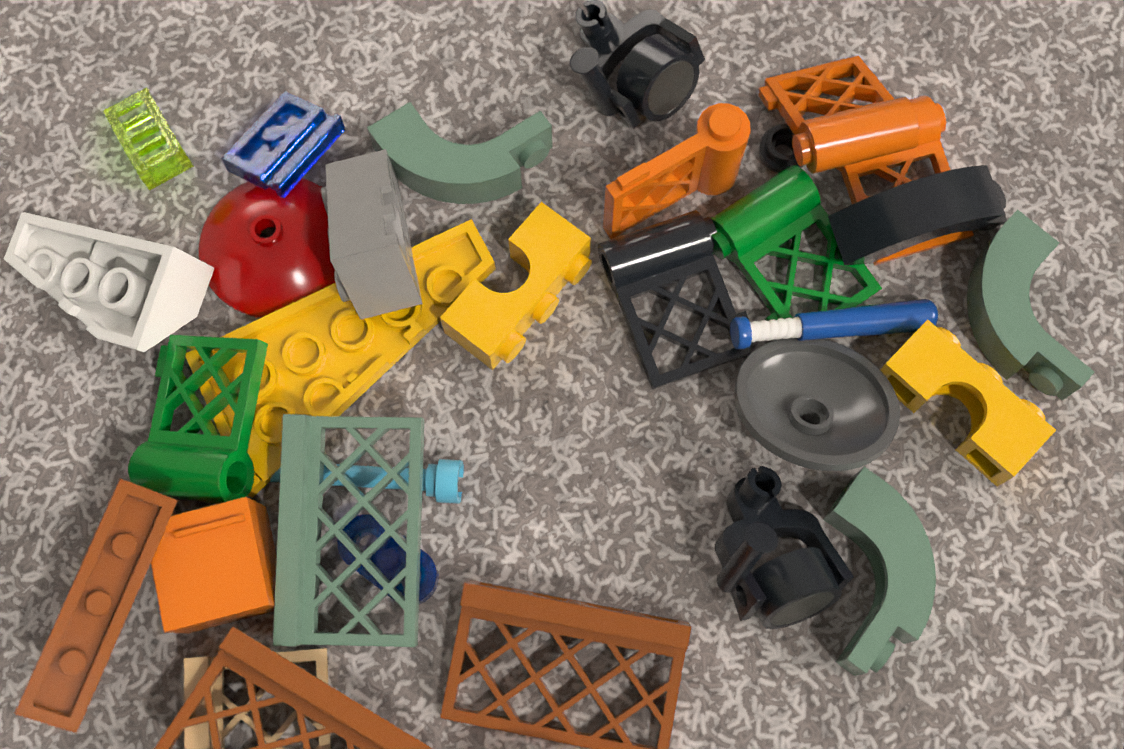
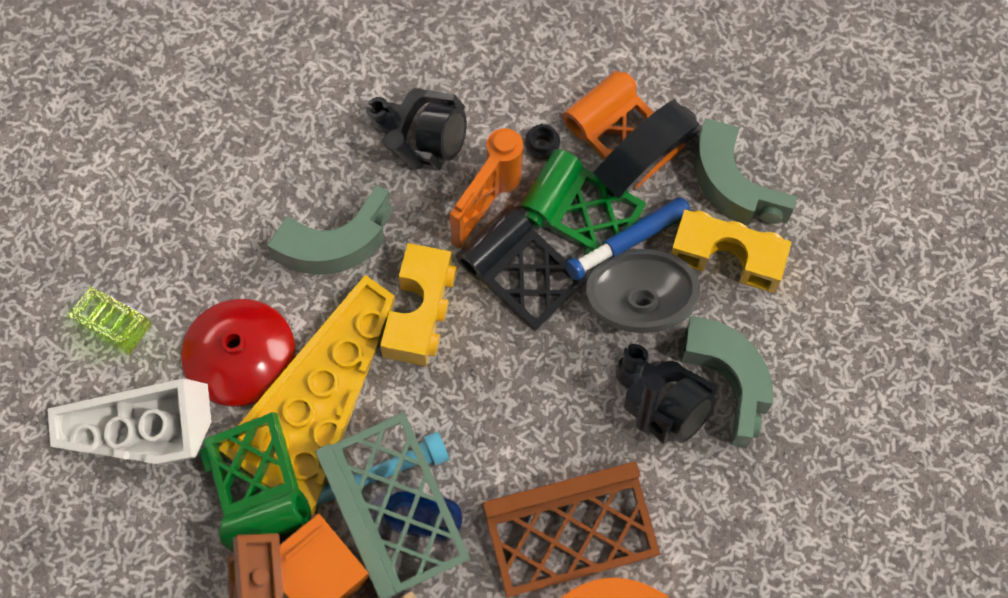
camera: 30 degrees left, 5 degrees down
(283, 144) = (211, 281): clear blue plate -> none
(369, 235) = (307, 313): light grey wedge -> none
(847, 130) = (579, 113): orange piece -> none

